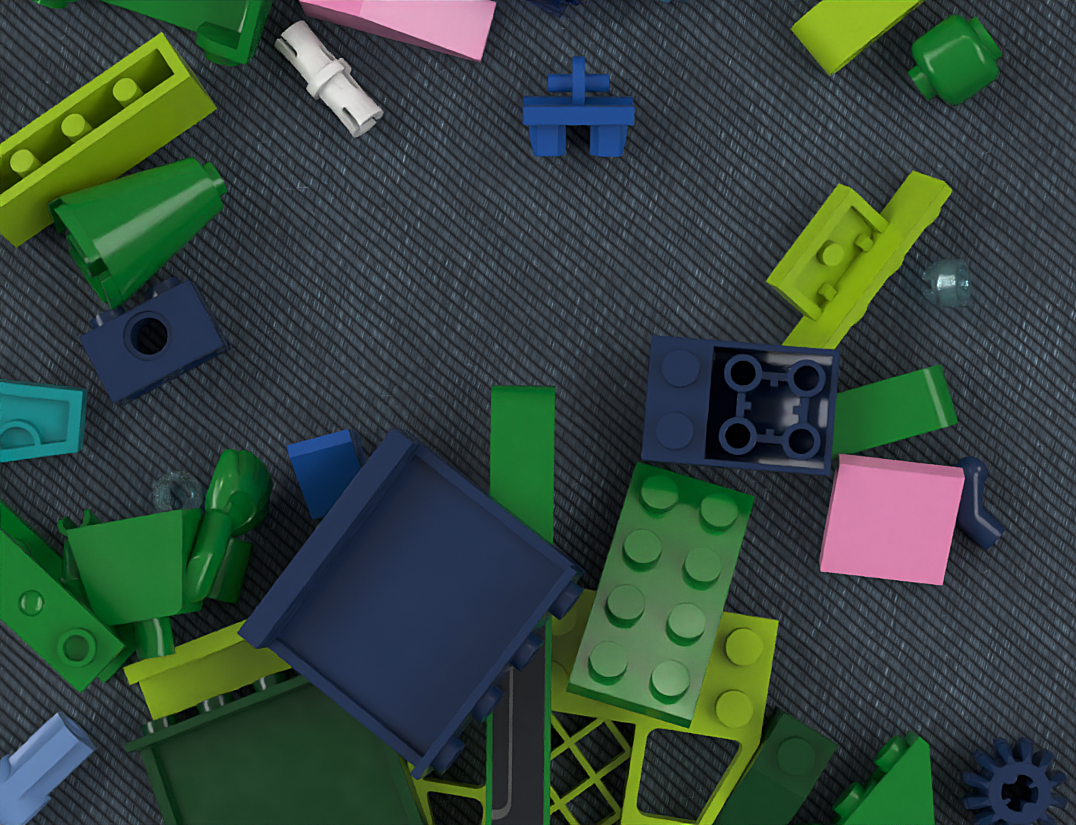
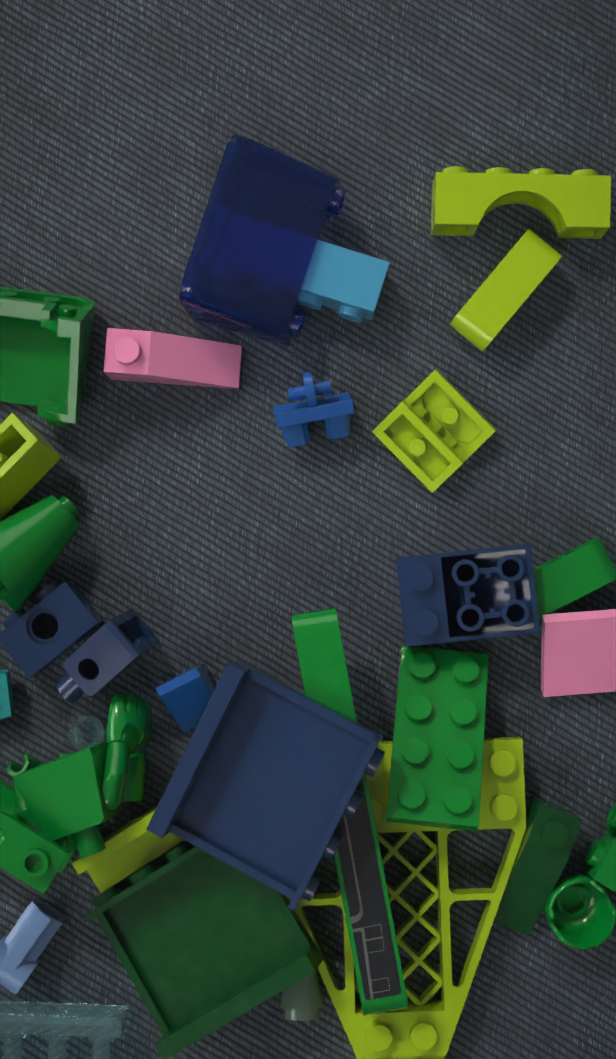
camera: 10 degrees left, 0 degrees up
(242, 384) = (106, 656): none -> dark blue torso
(328, 78) = (135, 421): white pin -> none
(741, 173) = (434, 430): none -> lime slope
(850, 255) = (522, 475): lime bracket -> none
(949, 283) = (593, 478): clear light blue hinge -> none
(954, 60) = (567, 324): green head -> none

